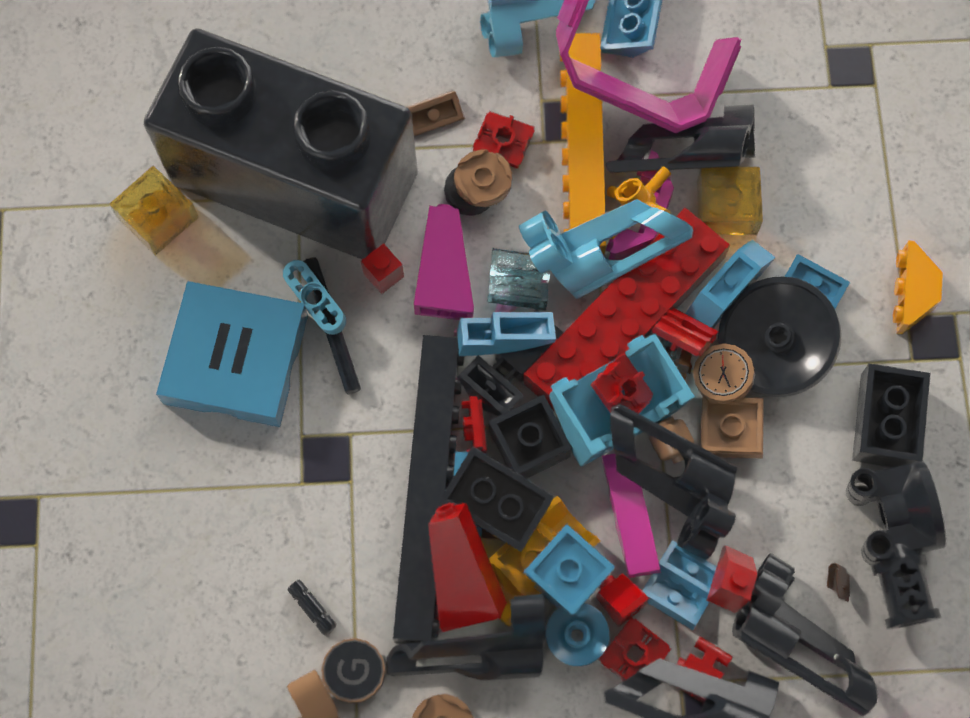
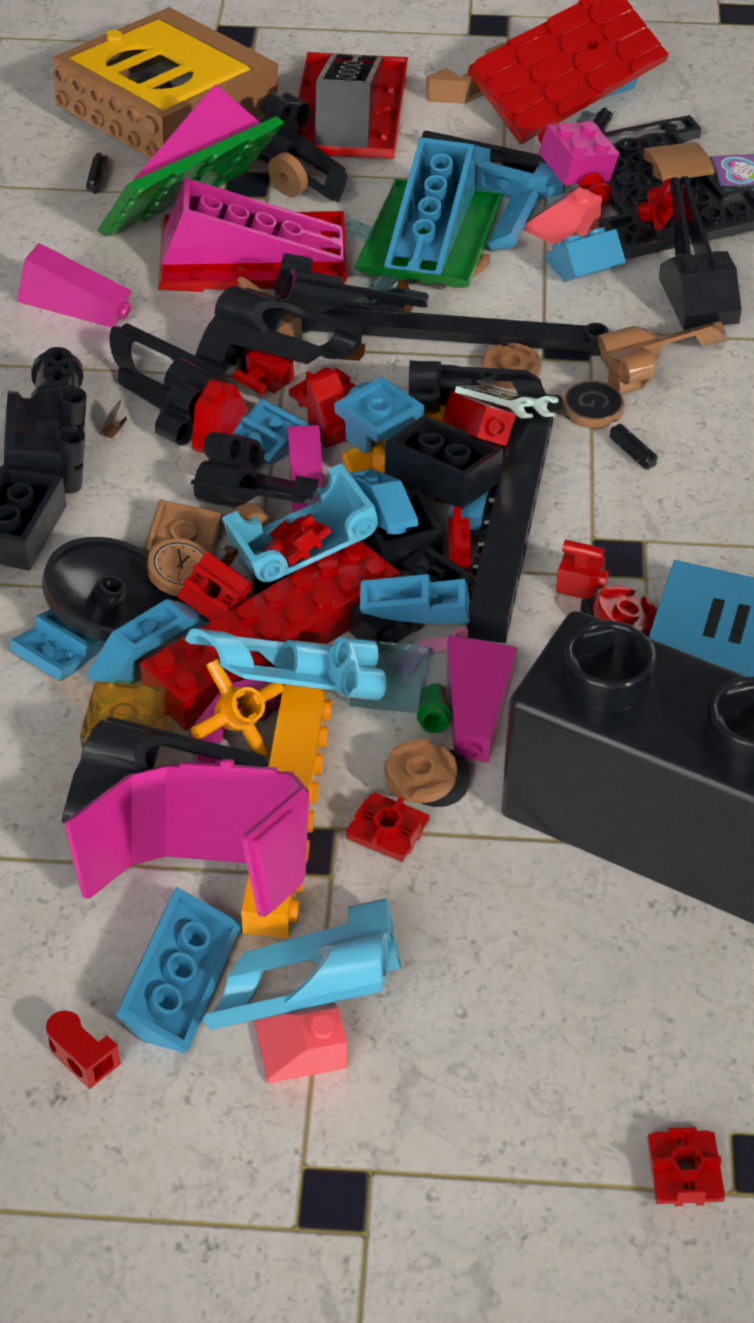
camera: 175 degrees left, 25 degrees down
(319, 374) = (621, 605): none -> red tile
(359, 415) = (581, 570): none -> red brick
(435, 112) = (478, 871): medium nougat slope -> none
(446, 608) = (514, 401): none -> light aqua flag
(478, 250) = (434, 711): none -> green cone
(557, 449) = (389, 498): none -> dark azure slope

